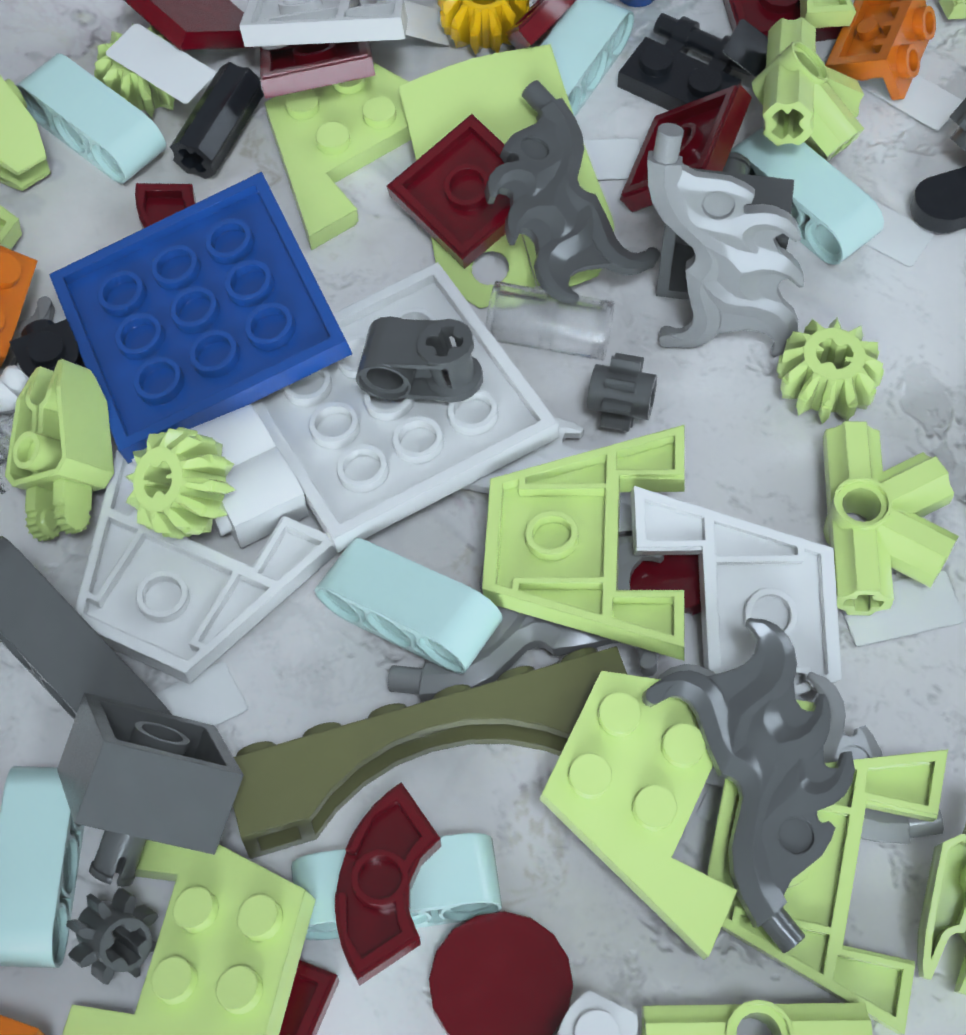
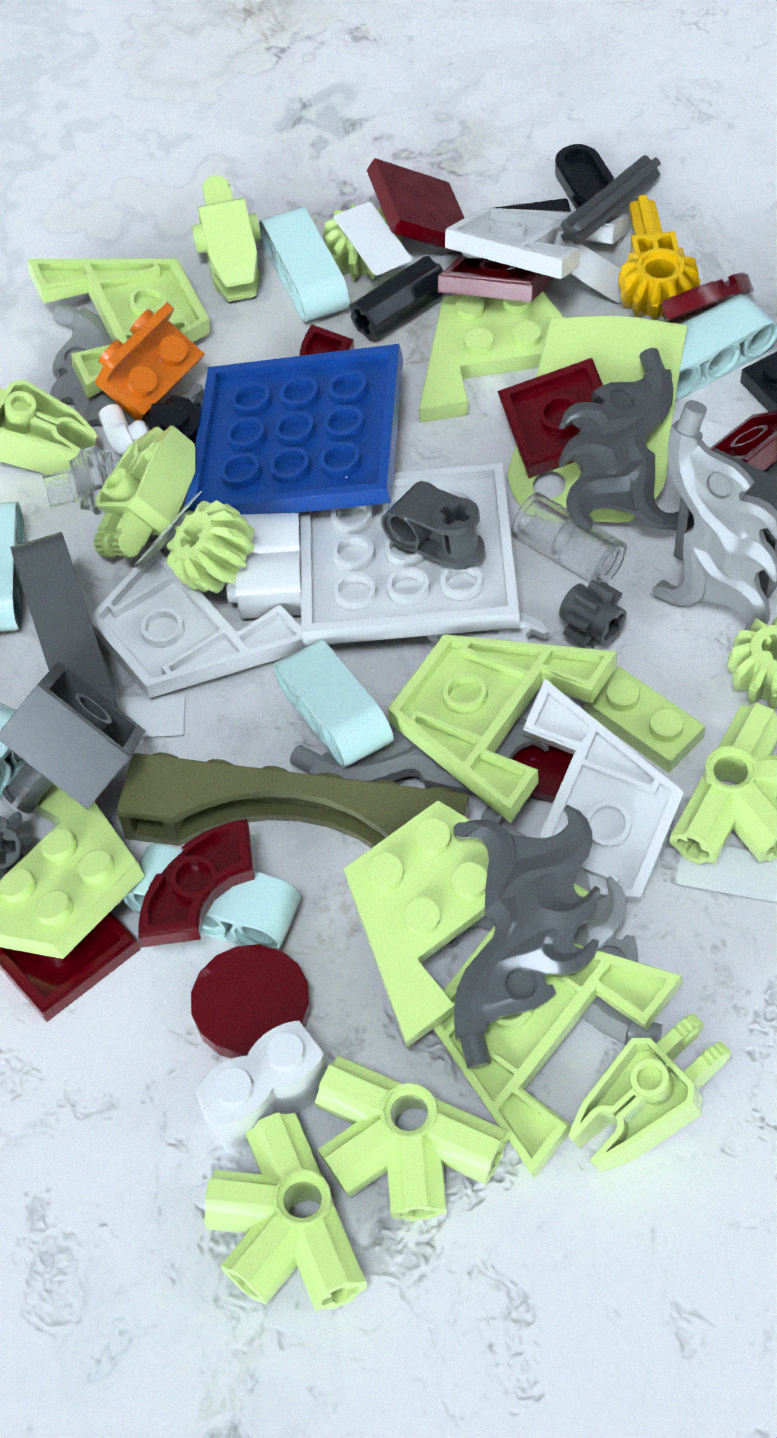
camera: 30 degrees right, 5 degrees down
(116, 481) = (168, 527): none -> white sticker
(737, 484) = (645, 720): none -> yellowish green plate

